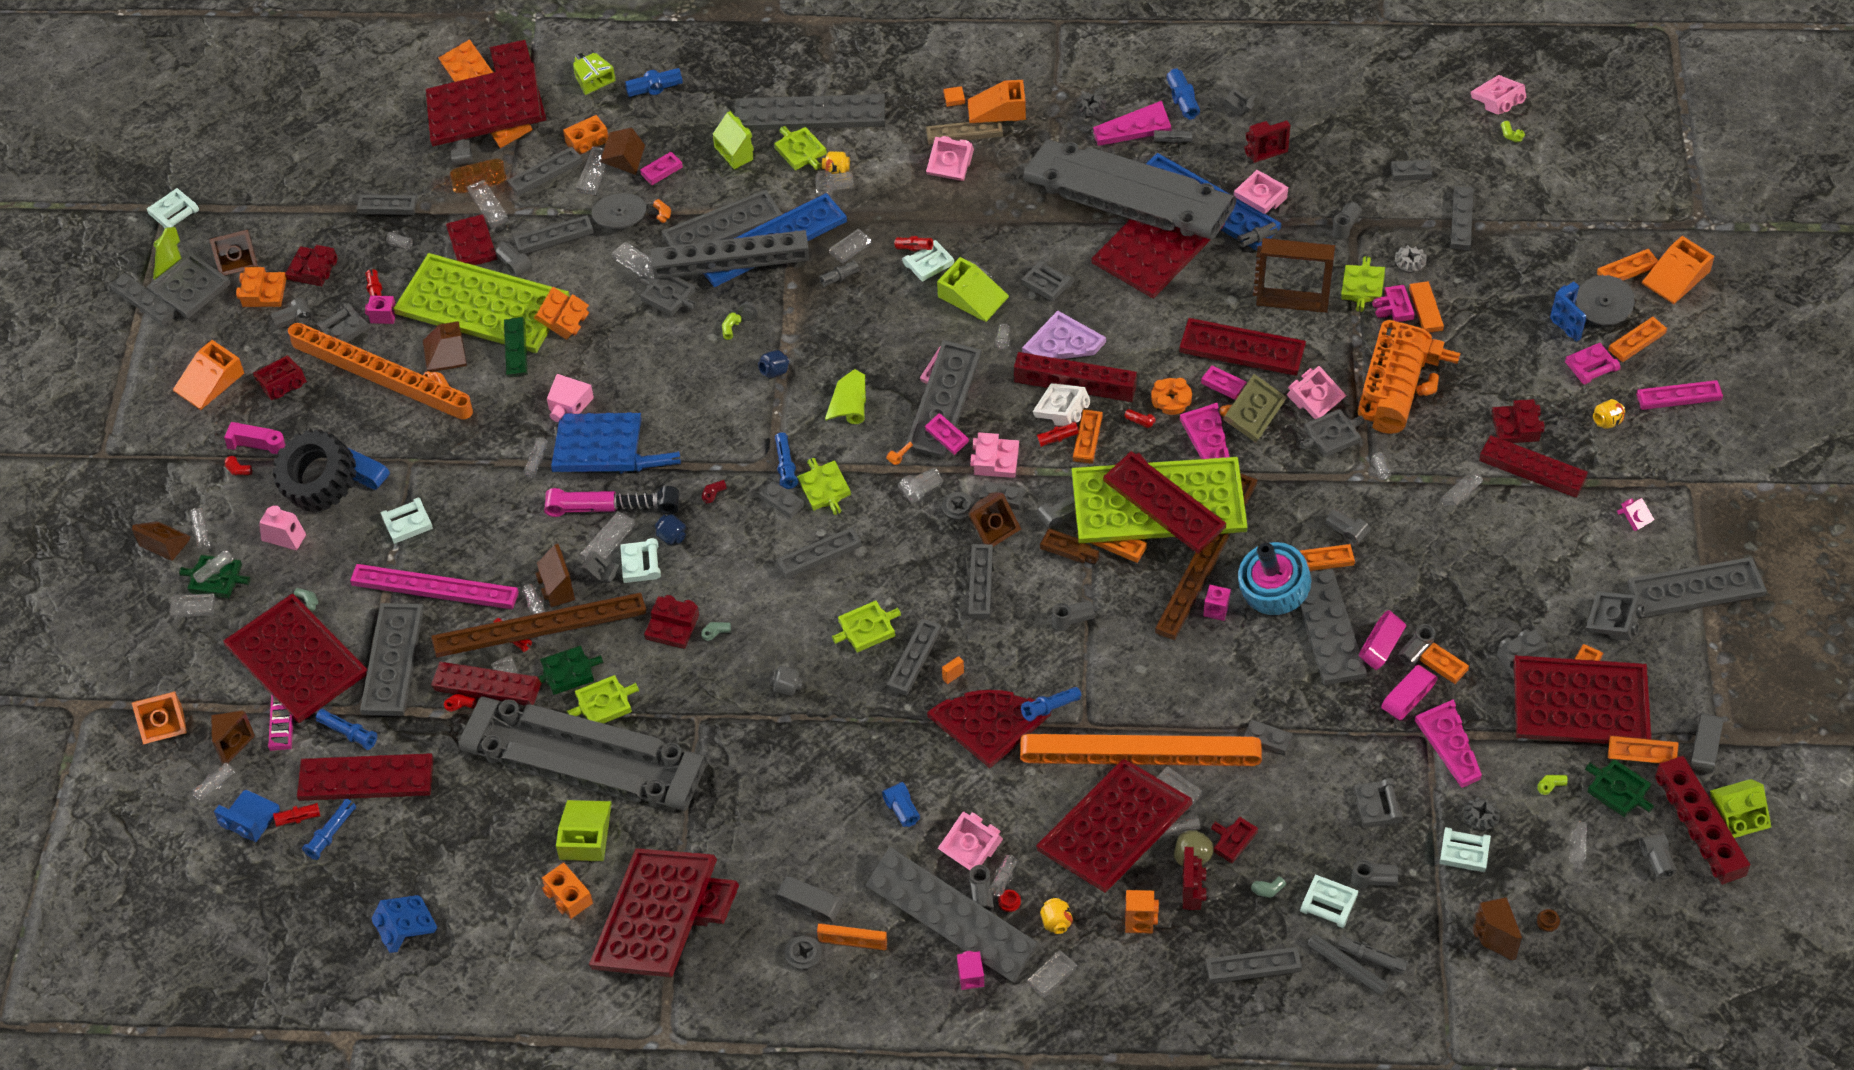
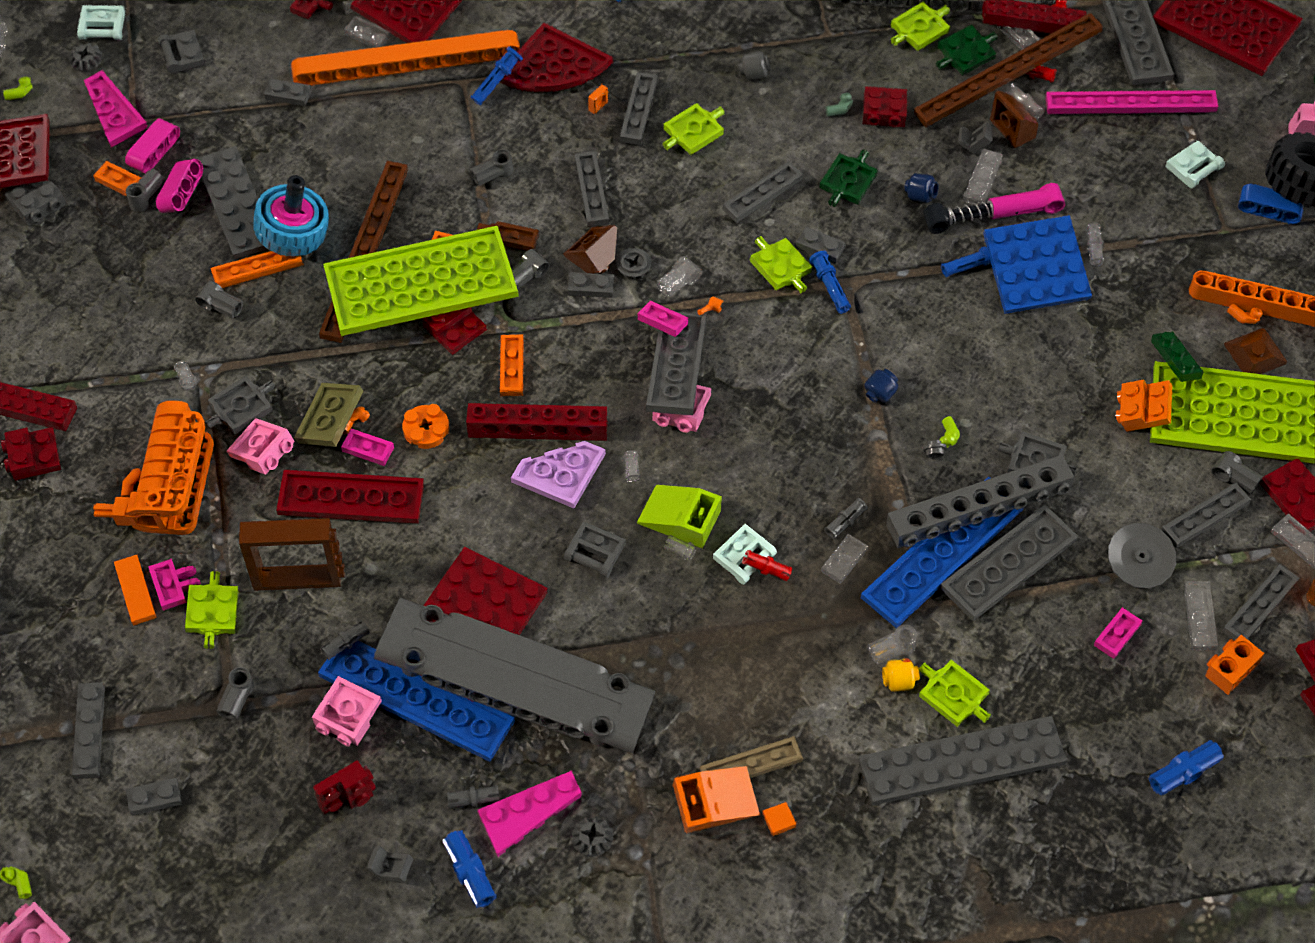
camera: 165 degrees right, 5 degrees up
(308, 596) = (1246, 75): sand green arm -> none
(568, 397) = (1092, 312): bright pink torso -> none
(592, 72) = (1276, 770): lime torso -> none
(623, 150) = (1175, 643): reddish brown slope -> none
(633, 561) = (946, 158): light aqua plate -> none
(634, 260) = (1093, 502): clear plate -> none
(664, 210) = (1088, 575): orange arm -> none
(711, 490) = (897, 240): dark red arm -> none
(733, 141) = (1039, 677): lime slope -> none
(734, 552) = (848, 178): none -> dark green plate
(849, 398) = (783, 355): lime panel -> none
(950, 158) = (756, 704): bright pink plate -> none
(994, 456) = (607, 323): bright pink plate -> none
(1058, 434) = (543, 353): red pin -> none
(1062, 404) = (545, 384): white plate -> none
(1145, 421) = (454, 388): red arm -> none
(1164, 502) = (413, 264): dark red plate -> none
(1206, 431) = (378, 379): dark pink wing -> none
(1217, 602) = (348, 198): dark pink brick -> none
(1404, 262) = (164, 658): light grey gear -> none
(1461, 490) = (96, 358): clear plate -> none

